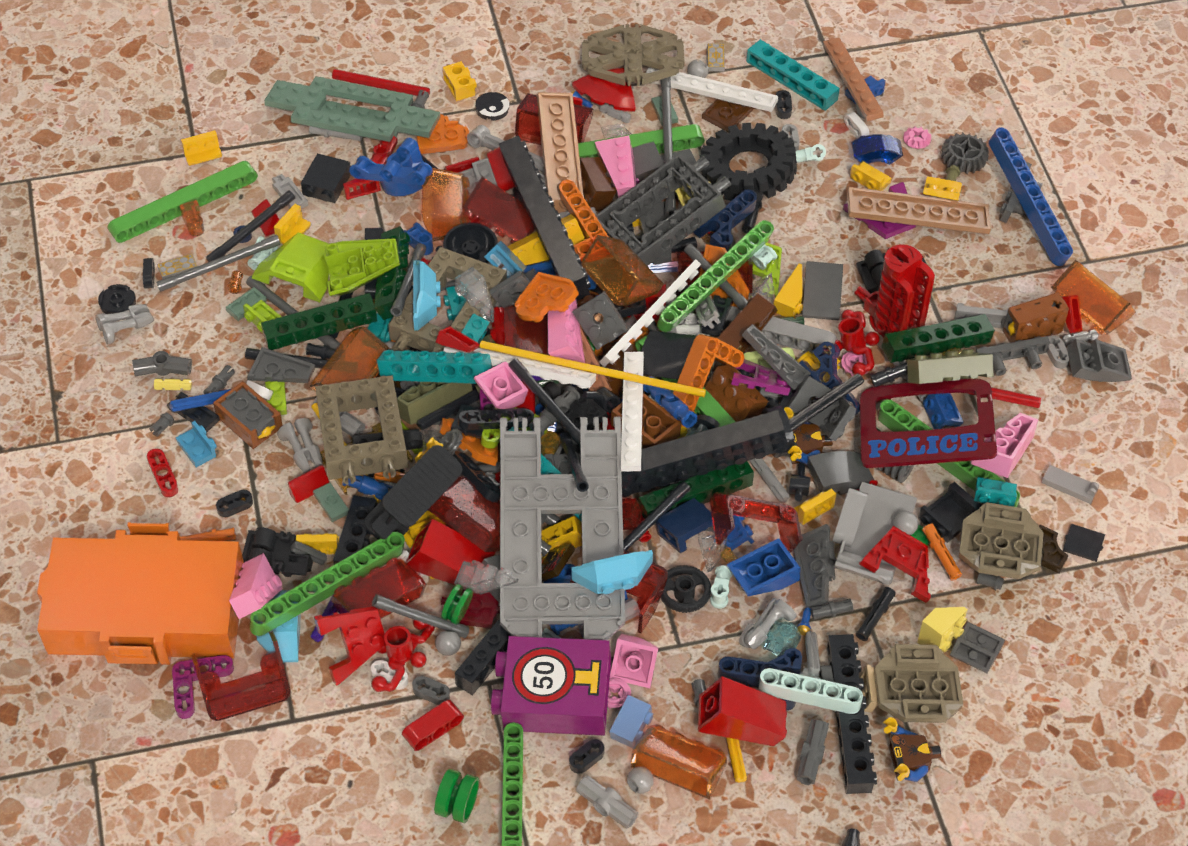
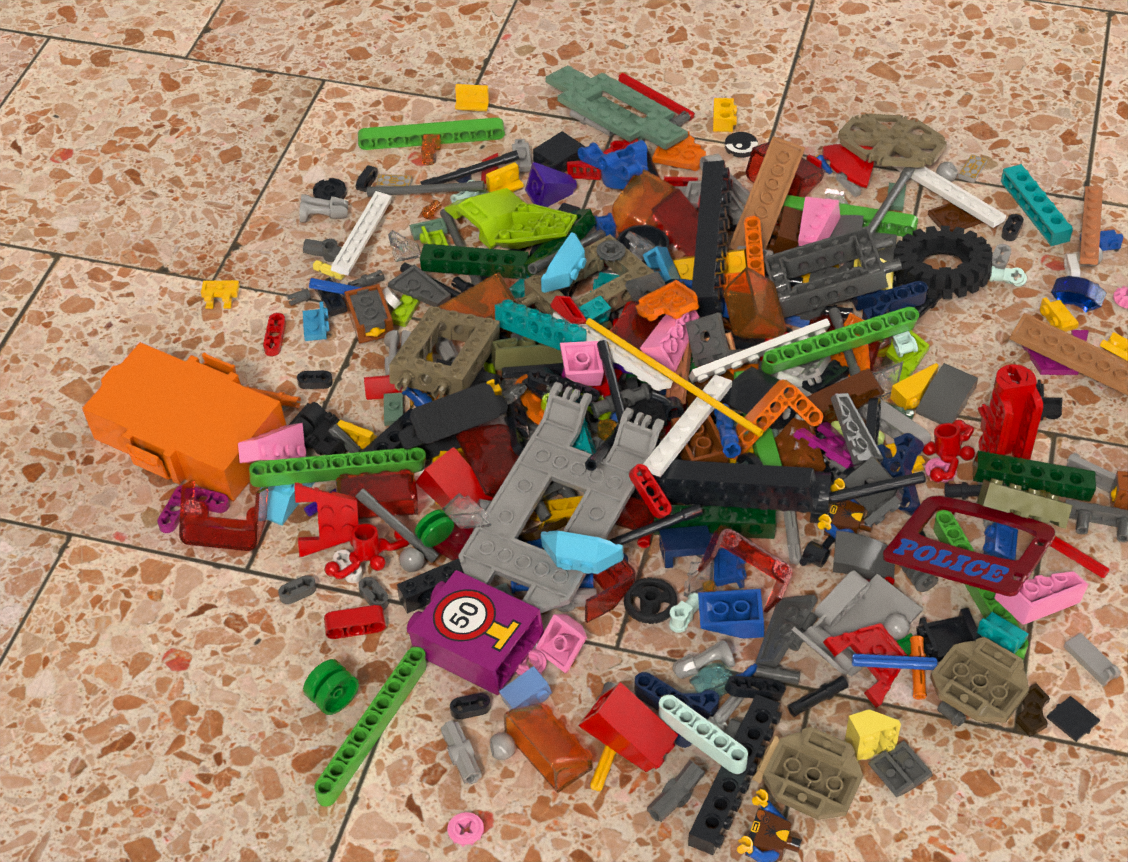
camera: 30 degrees right, 5 degrees down
(75, 447) = (219, 289): none -> yellow plate
(186, 334) = (361, 233): none -> white plate
(234, 333) = (403, 247): none -> clear slope
(337, 216) = (548, 185): none -> dark purple slope
(353, 716) = (297, 589): none -> dark grey beam
(451, 260) = (611, 245): none -> dark grey gear
(474, 289) = (612, 277): clear slope -> none
(475, 248) = (639, 244): none -> clear slope
(646, 500) = (658, 493): none -> red beam
(780, 336) = (873, 418): none -> black beam
(812, 633) = (741, 687): none -> black beam
(815, 506) = (818, 578): yellow bracket -> none
(924, 556) = (894, 661): none -> blue axle

